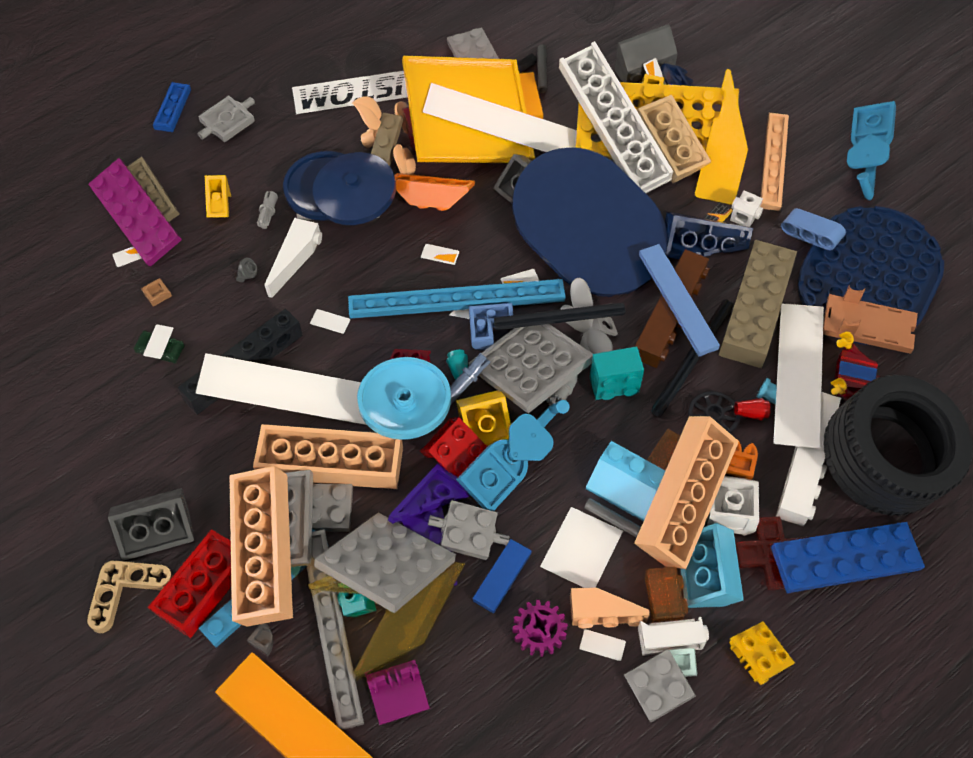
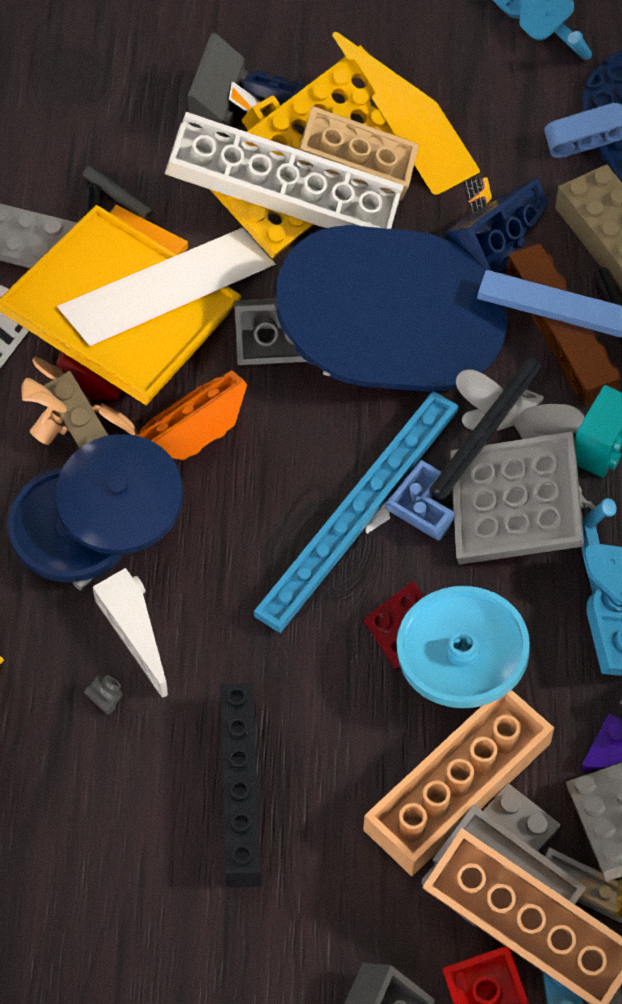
camera: 50 degrees left, 0 degrees up
(156, 292) = (38, 814): medium nougat tile -> none
(158, 341) = (122, 857): white sticker -> none
(171, 352) = (125, 863): clear green tile -> none
(267, 209) = (38, 610): light grey axle -> none
(279, 388) = (327, 763): white sticker -> none
(330, 321) = (261, 657): white sticker -> none
(432, 492) = (591, 708): dark purple wing -> none
(440, 254) = (275, 482): white sticker -> none
(454, 446) = (556, 649): red bracket -> none
(457, 361) = (450, 570): teal cone -> none
(468, 376) = (479, 562): sand blue pin -> none
(486, 416) = (544, 593): yellow slope -> none
(526, 276) = (386, 430): white sticker -> none
(746, 209) = (506, 164): white brick -> none
(774, 161) = (462, 94): light nougat tile -> none

